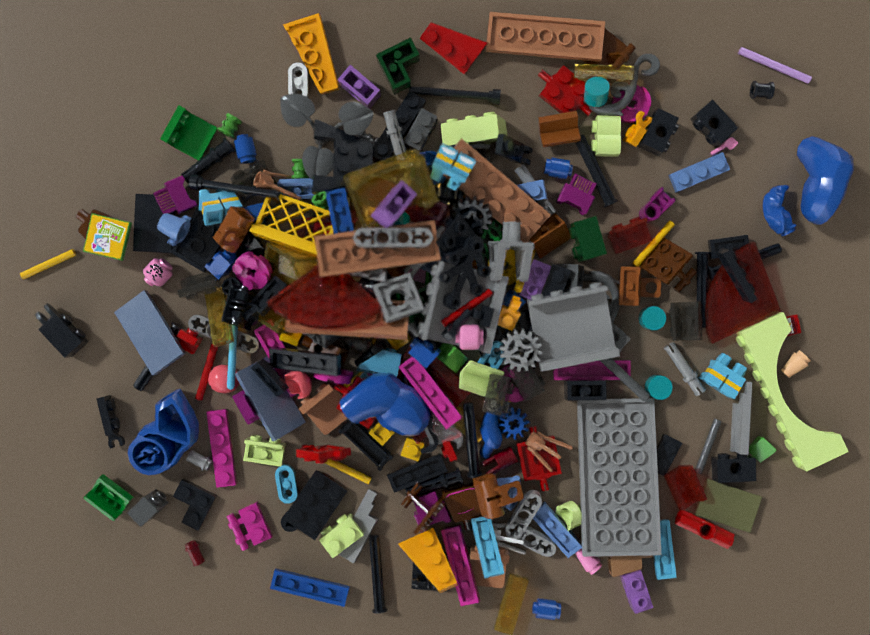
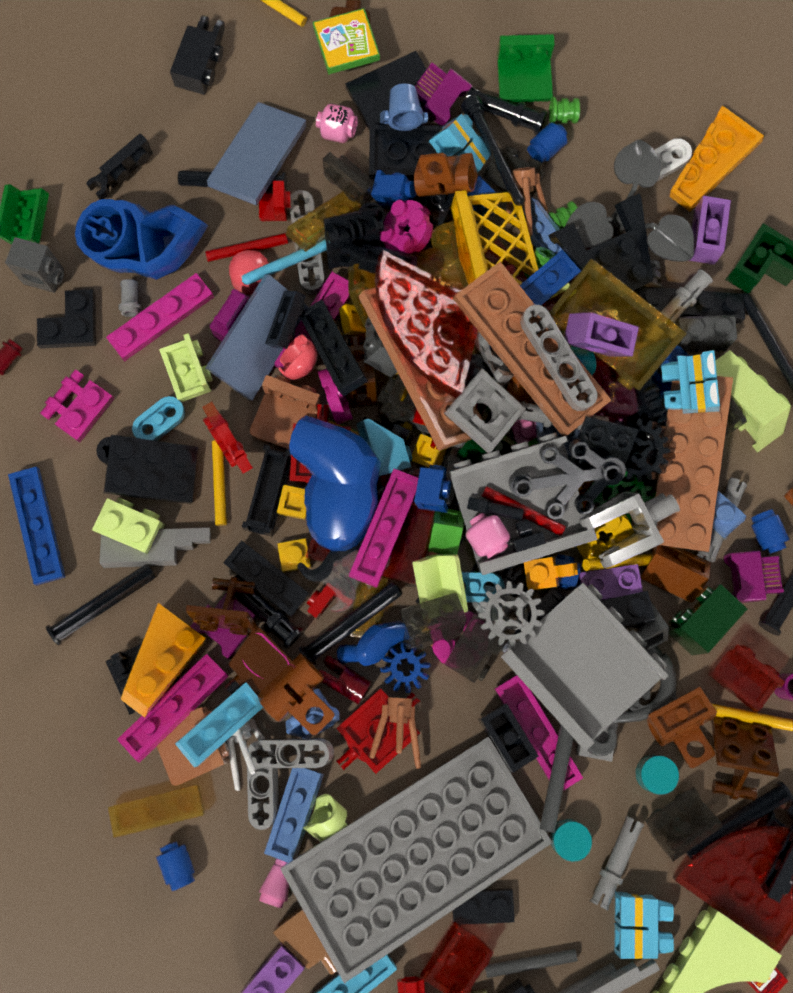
camera: 55 degrees right, 10 degrees down
(512, 149) = (757, 456): black hinge -> none

